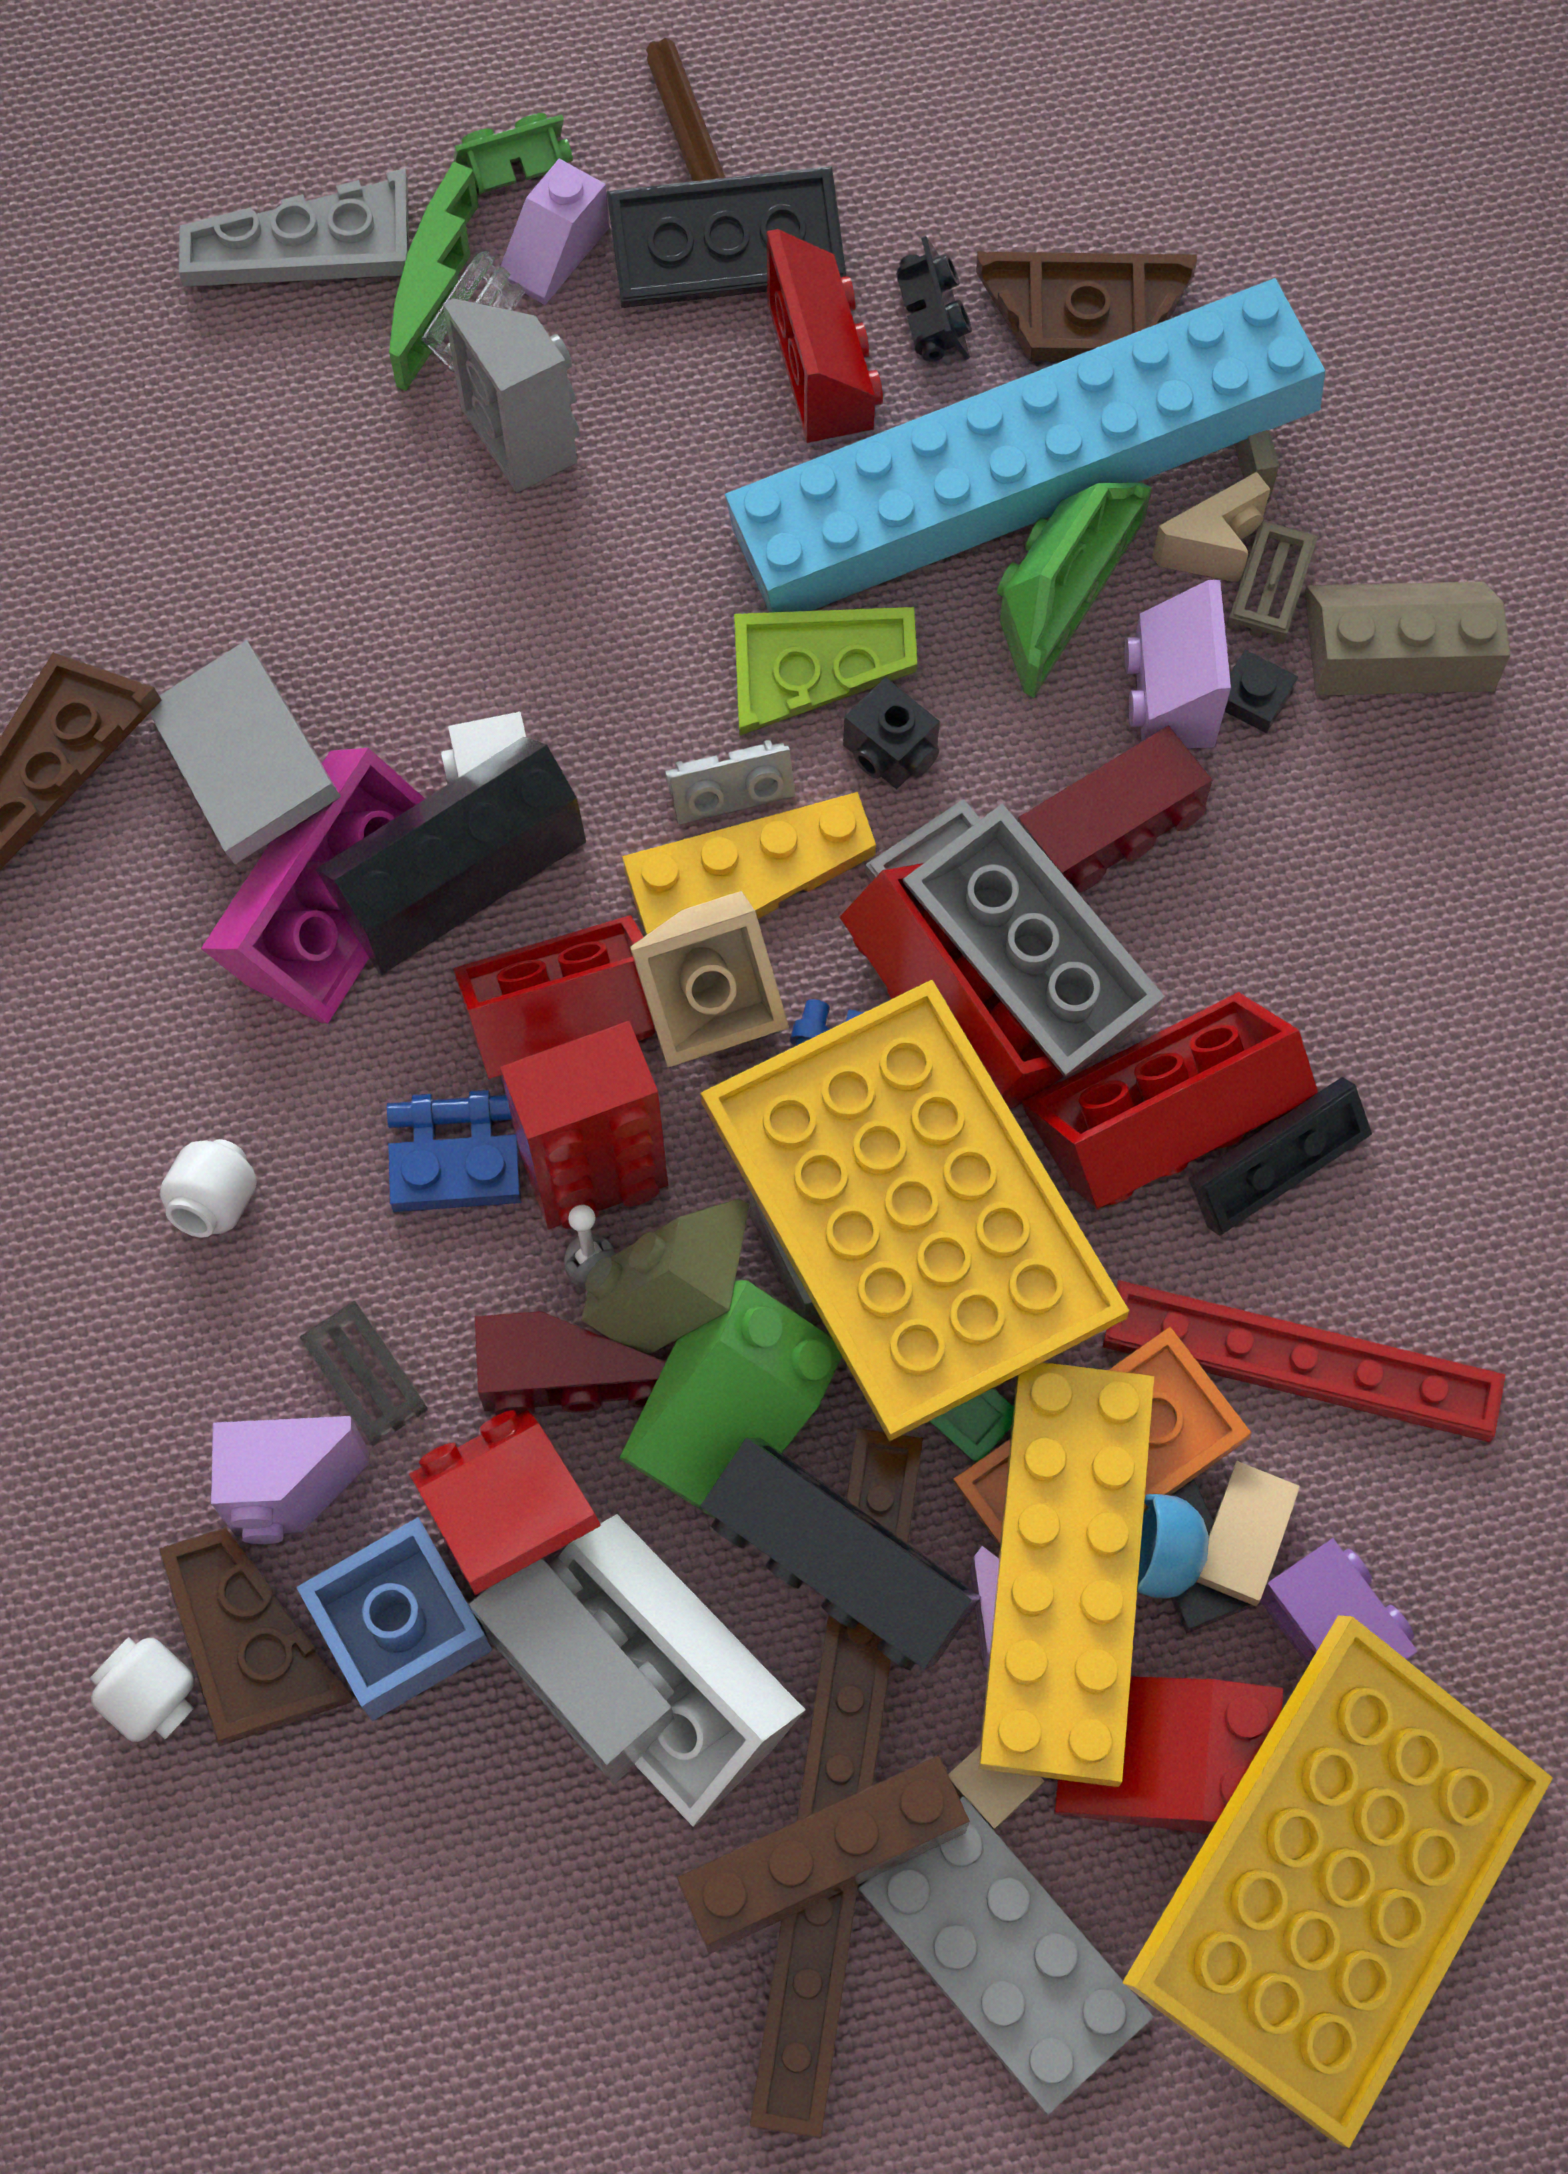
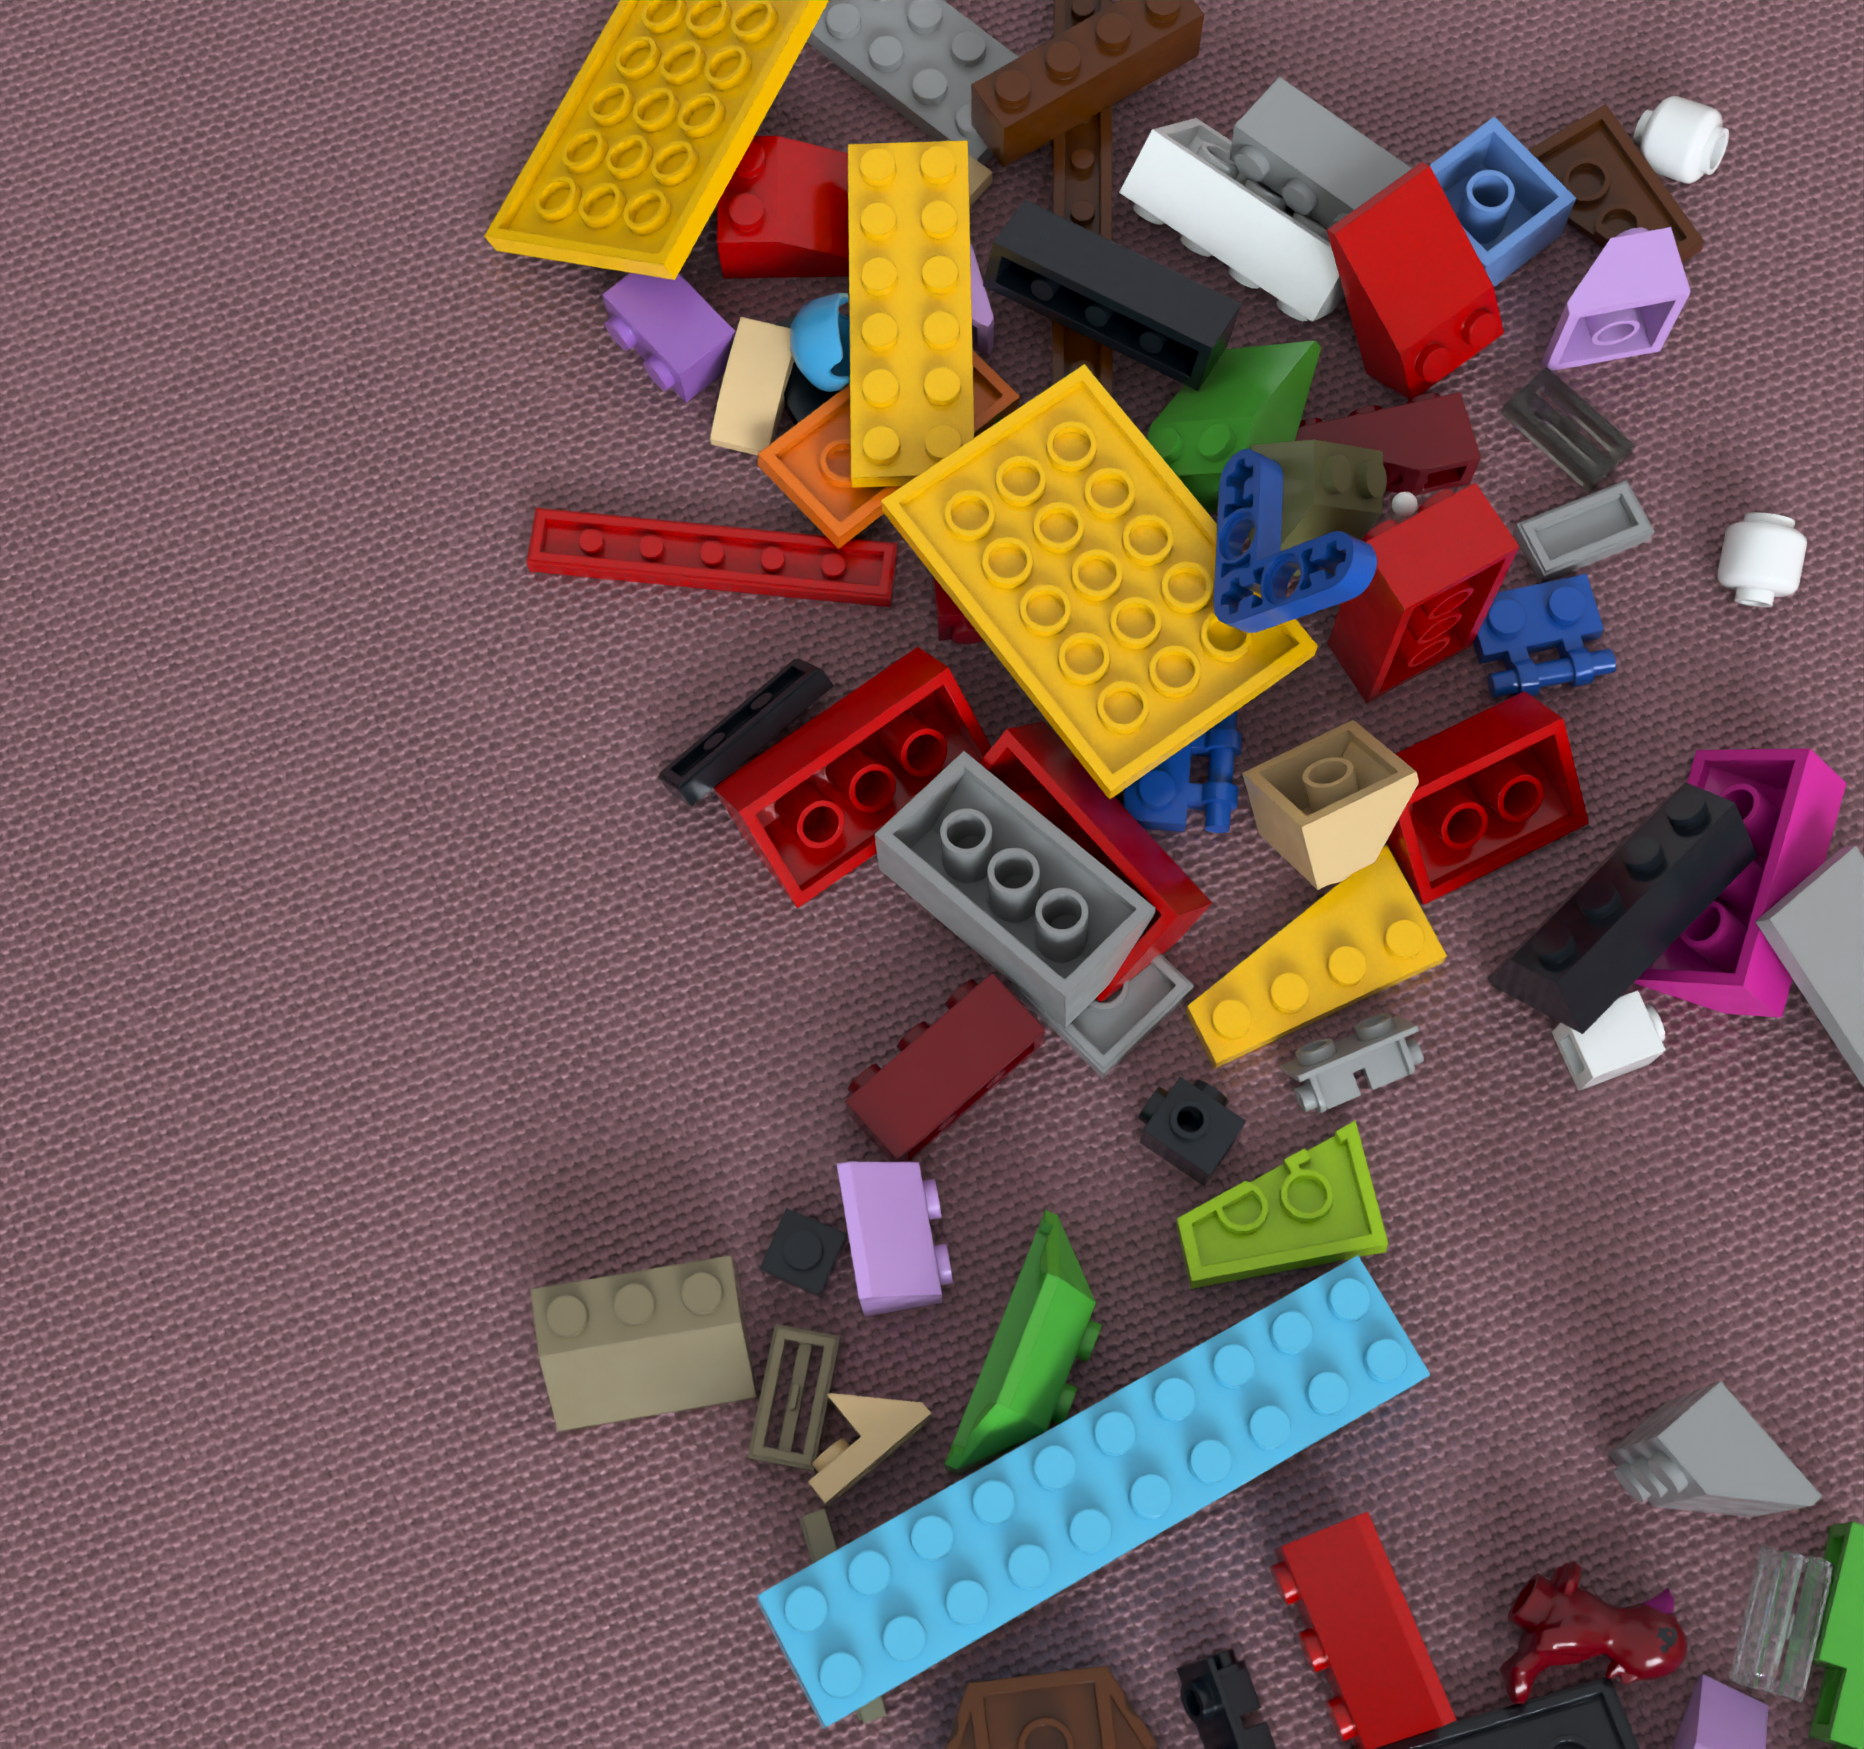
camera: 175 degrees right, 5 degrees up
(378, 1258) = (1583, 532): none -> light grey tile
(645, 329) = (1573, 1625): none -> dark red animal
(741, 1230) = (1253, 498): none -> blue beam

